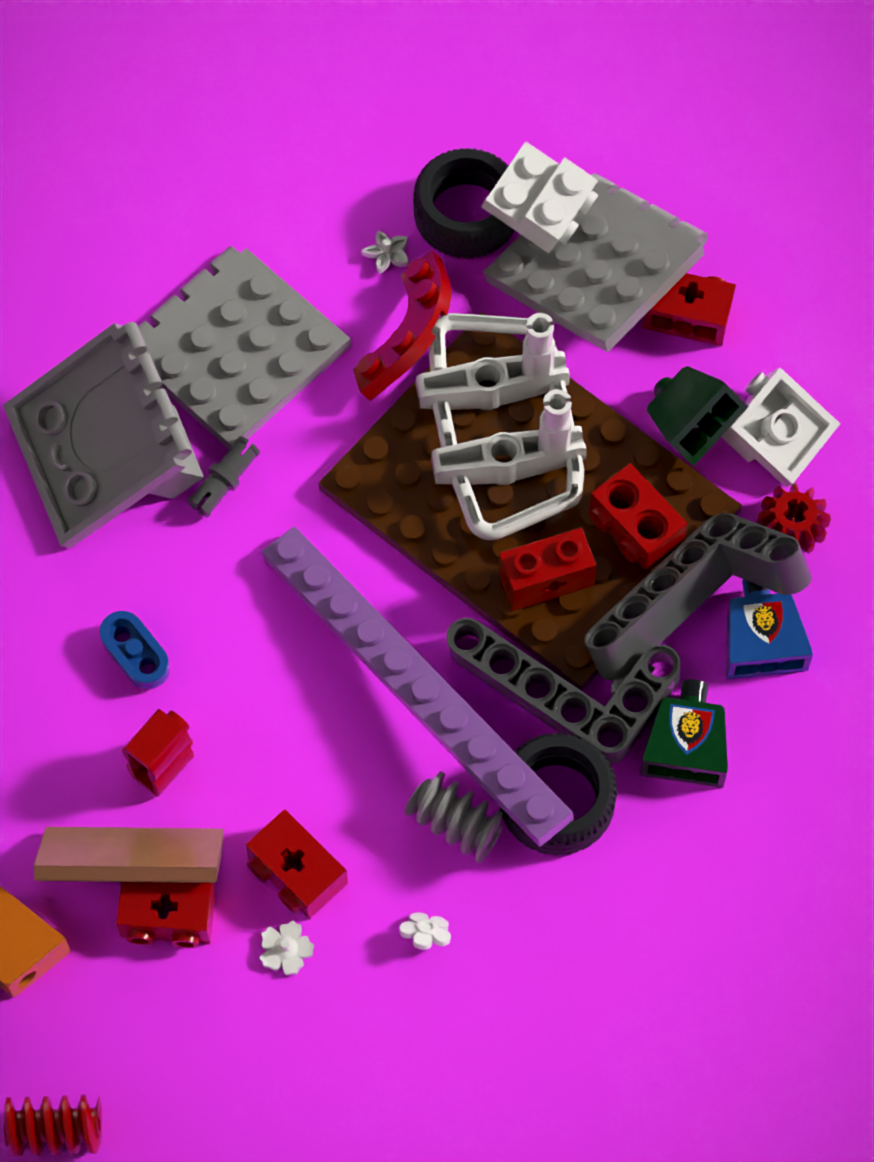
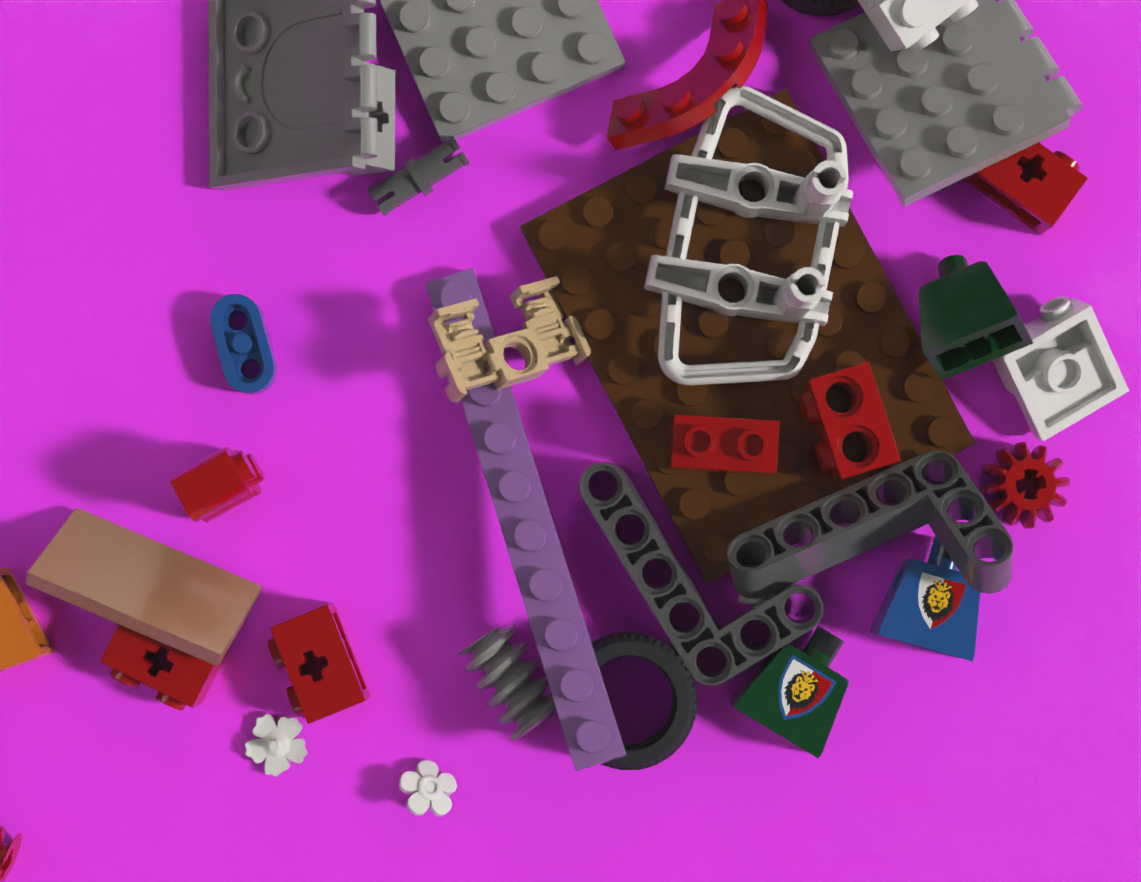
camera: 20 degrees right, 20 degrees up
(368, 554) = (541, 342): none -> tan piece

